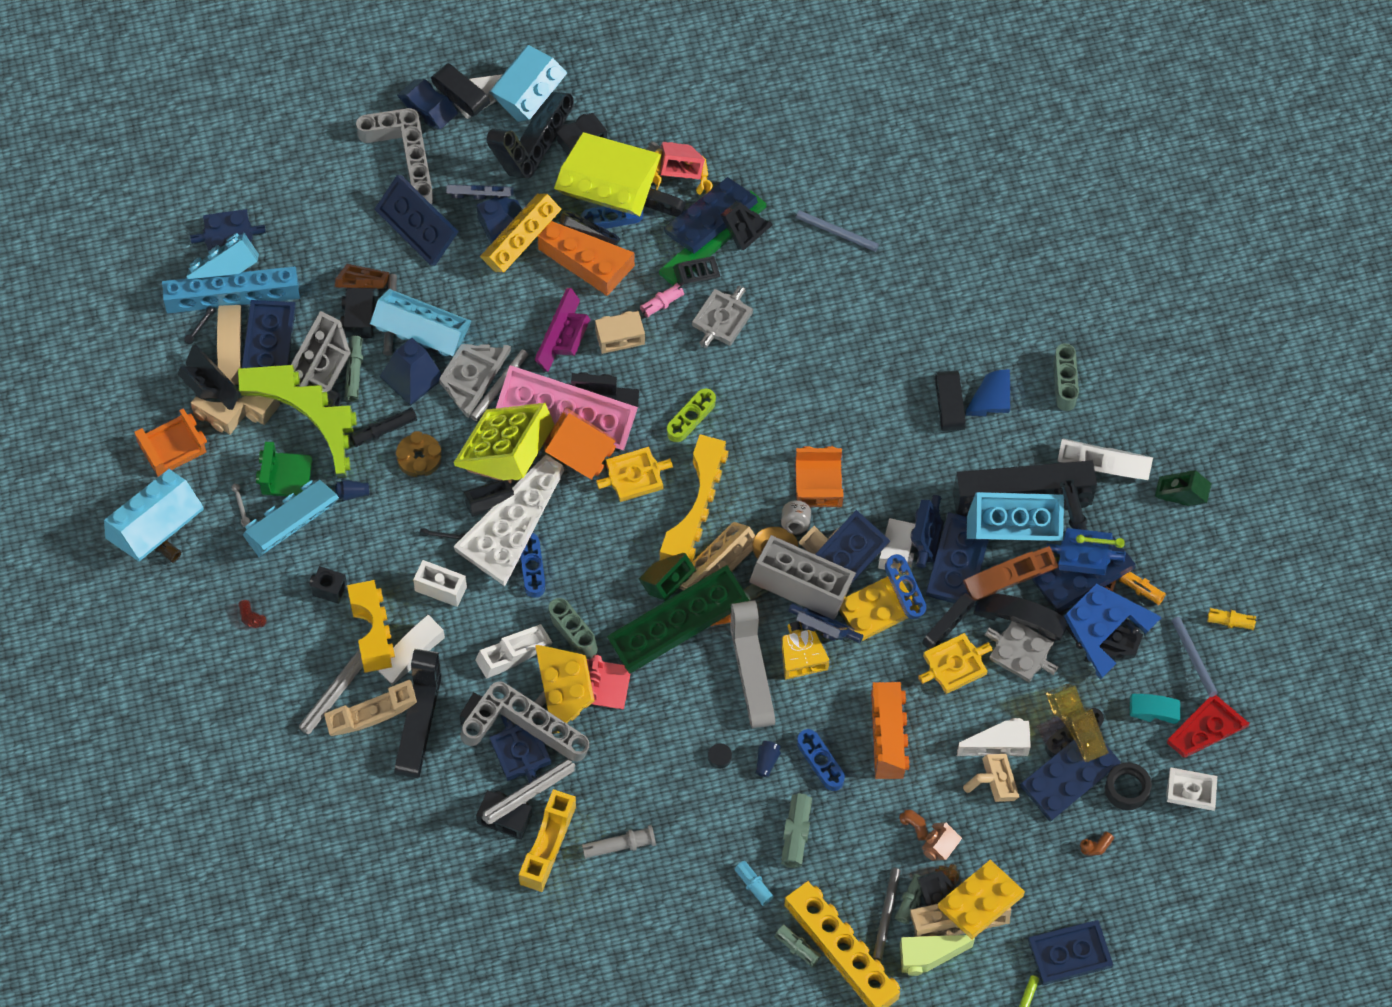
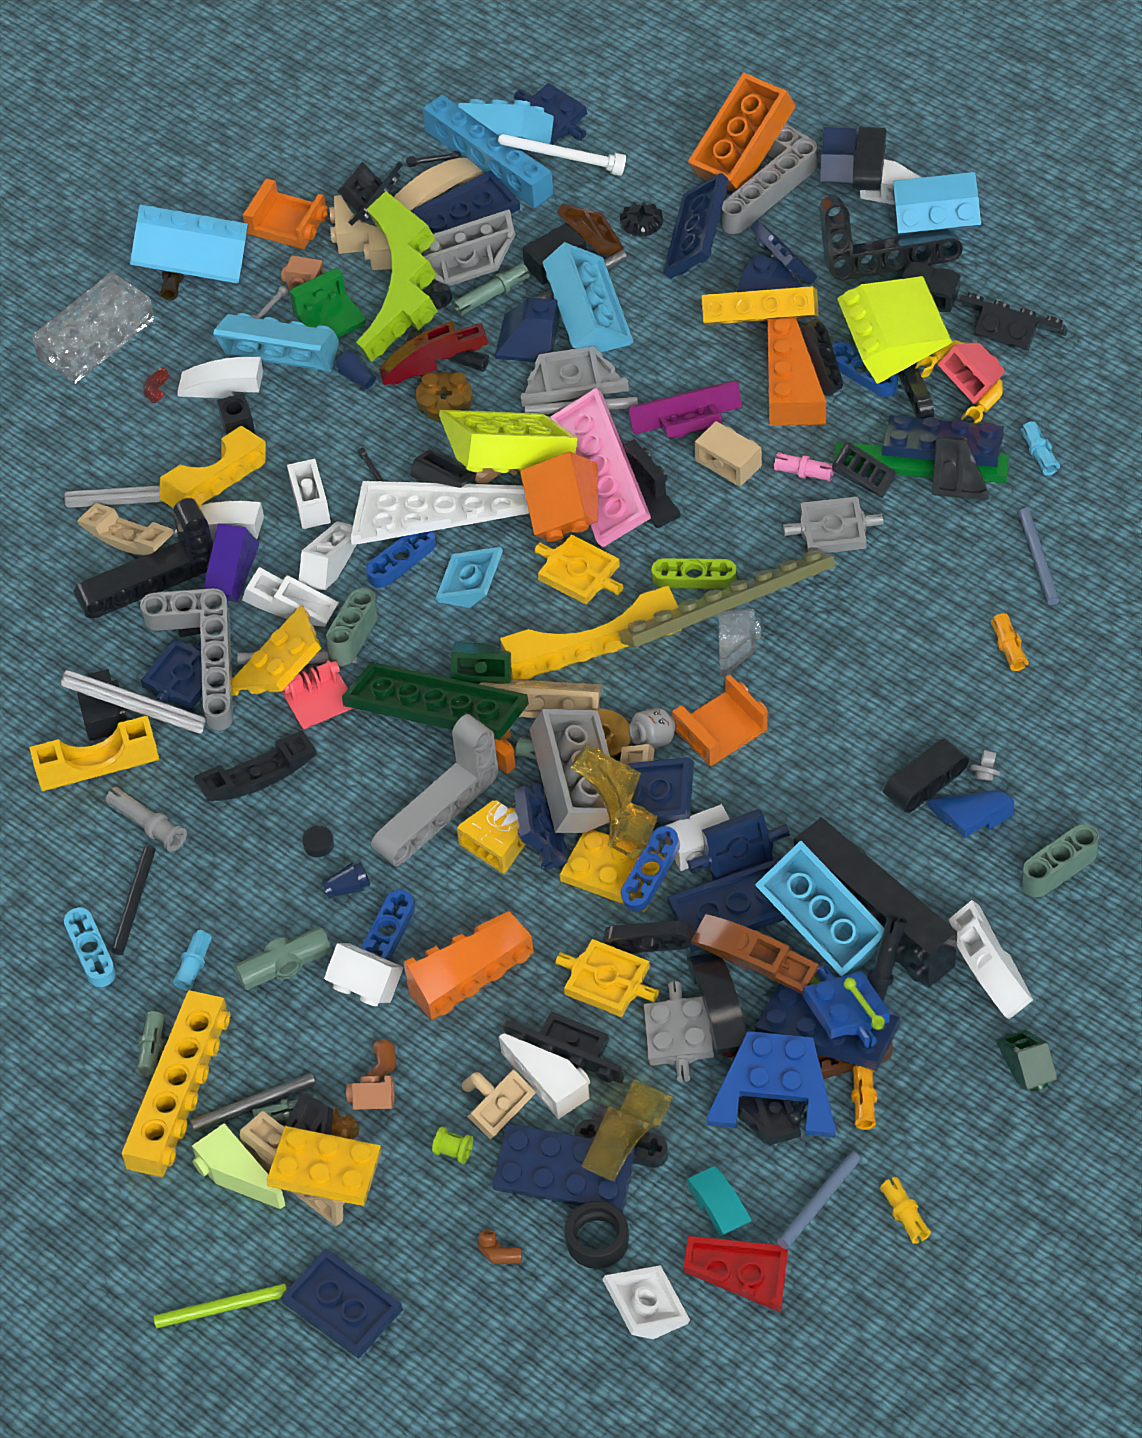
camera: 60 degrees right, 10 degrees down
(166, 598) = (93, 327): none -> clear brick
(239, 466) = (301, 270): none -> nougat brick
(285, 572) = (222, 378): none -> white slope
(311, 228) = (613, 163): none -> white piece
(371, 140) = (742, 131): none -> orange brick
(371, 254) = (650, 224): none -> black gear
(382, 435) = (419, 354): none -> dark red slope
(459, 666) = (231, 560): none -> dark purple slope
(498, 604) = (326, 556): none -> white slope
(587, 537) = (468, 577): none -> medium azure slope
(636, 753) = (259, 772): none -> black slope
(651, 118) = (1008, 325): none -> black bracket
(676, 889) = (133, 900): none -> black bar
(711, 933) = (91, 935): none -> medium azure beam
(738, 411) = (719, 601): none -> olive plate
(759, 171) = (1040, 448): none -> medium azure pin
(764, 427) = (737, 638): none -> clear slope
(842, 561) = (616, 783): none -> clear yellow arch
(849, 792) = (363, 974): none -> white brick
(888, 290) = (1009, 642): none -> light orange pin
(969, 365) = (985, 770): none -> light grey plate
(986, 712) = (572, 1041): none -> black bracket
(1008, 822) = (452, 1145): none -> lime bush

